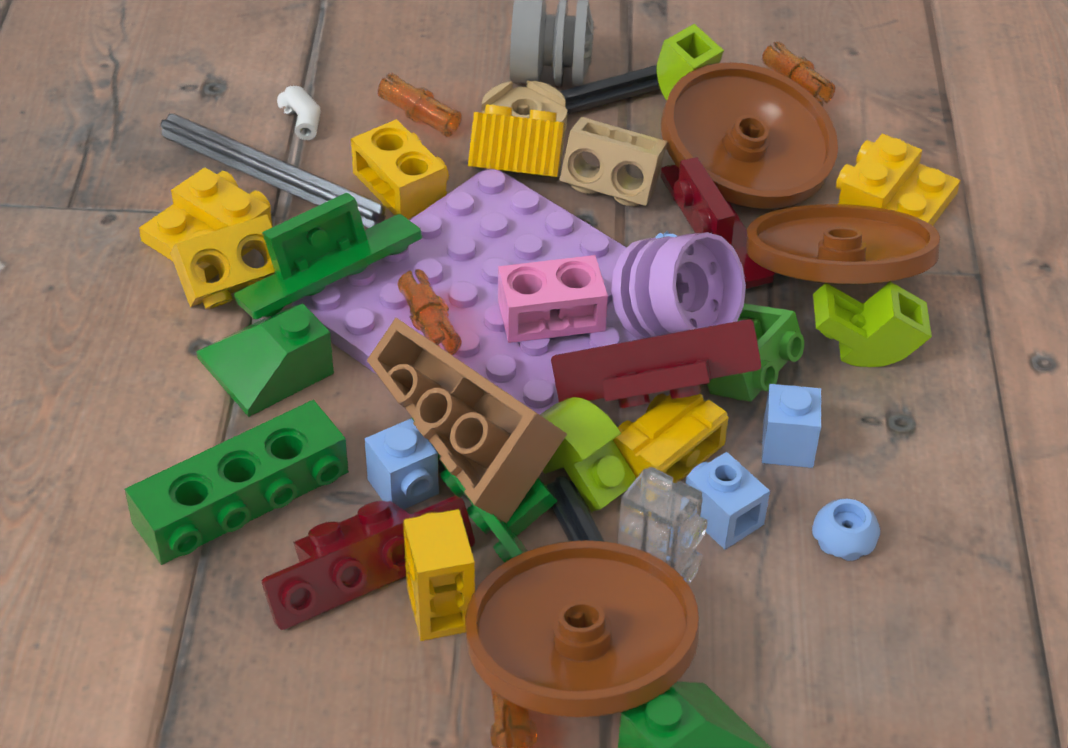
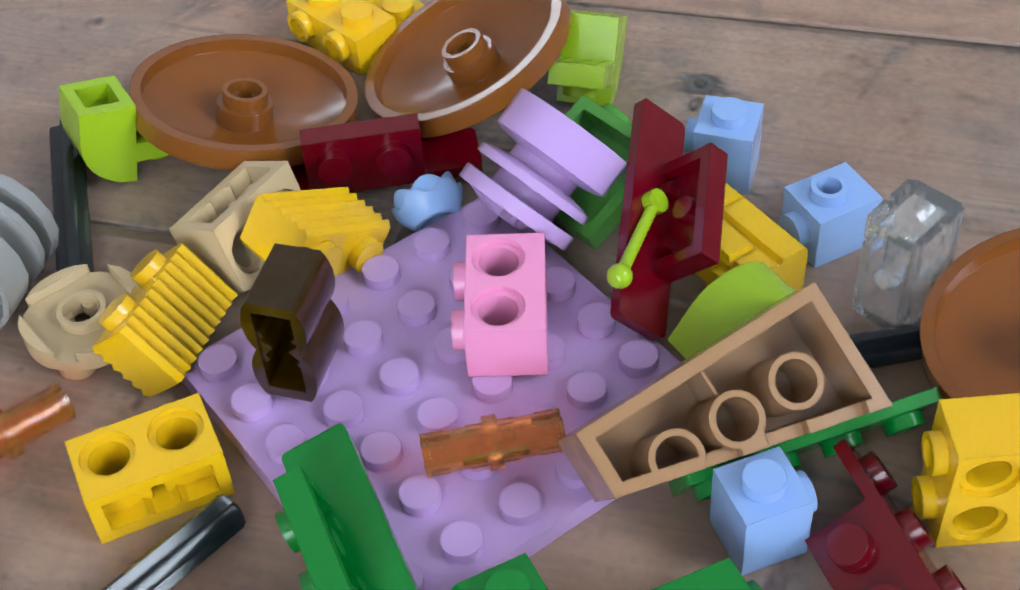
camera: 75 degrees left, 0 degrees up
(492, 183) = (292, 322): none -> dark brown brick
(607, 194) = (317, 220): none -> yellow brick
(659, 356) = (654, 203): none -> lime hinge
(799, 70) = (125, 57): clear orange pin -> none
(846, 529) = (861, 137): light blue plate -> none

